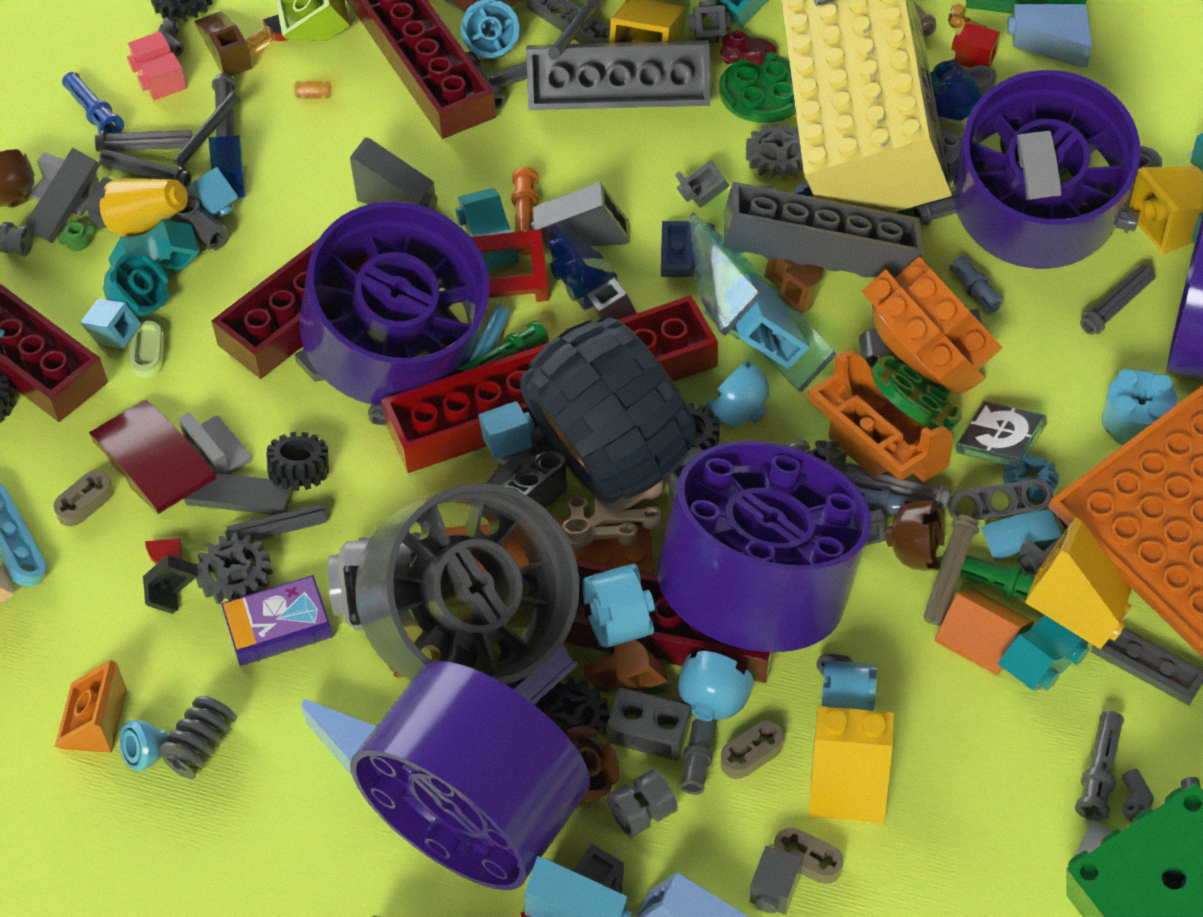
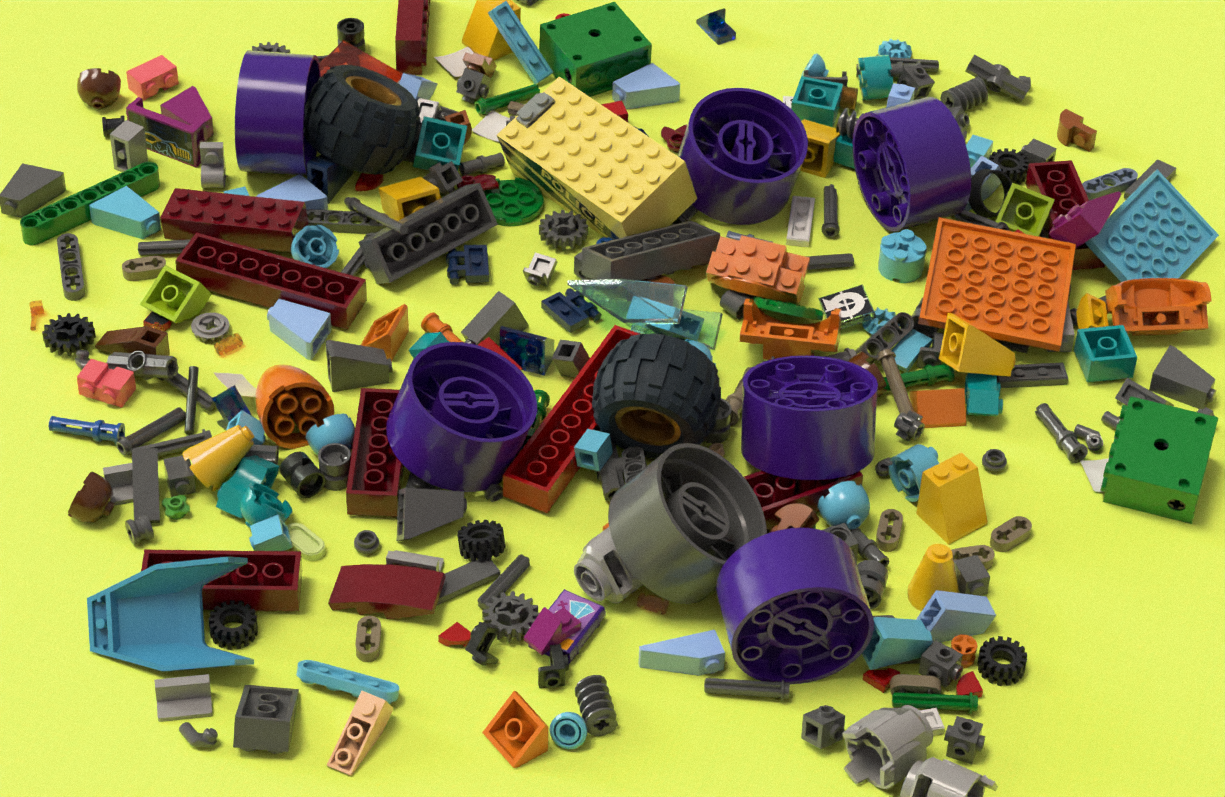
camera: 45 degrees left, 10 degrees down
(198, 388) = (366, 542): none -> dark grey plate
(199, 65) = (144, 365): none -> dark grey piece
(211, 663) = (554, 675): none -> pearl dark grey bracket
(214, 273) = (302, 474): none -> pearl dark grey wheel
(240, 616) = (551, 629): none -> magenta slope
(247, 273) = (335, 464): none -> dark grey wheel
(267, 140) = (239, 381): none -> white sticker
(278, 246) = (336, 429): none -> medium azure cylinder
(278, 391) = (427, 509): none -> dark grey slope
(279, 174) = (294, 392): none -> orange cylinder
(322, 53) = (206, 321): none -> light grey gear
(395, 109) = (299, 326): none -> light blue slope
(408, 863) = (747, 688): none -> dark grey axle
(468, 170) = (389, 331): none -> orange slope
(618, 605) = (774, 486): medium azure brick -> none
(645, 136) = (475, 266): none -> dark blue plate
(720, 857) = (933, 573): none -> yellow cone
(765, 25) = (481, 164): none -> dark grey pin
(893, 857) = (1013, 536): none -> dark tan beam
(913, 631) = (909, 425): none -> dark grey gear
(979, 738) = (994, 460): none -> dark grey plate
(1037, 357) = (830, 261): none -> dark grey axle
(1039, 165) = (745, 144): light grey slope -> none
(1070, 292) = (800, 221): none -> white tile

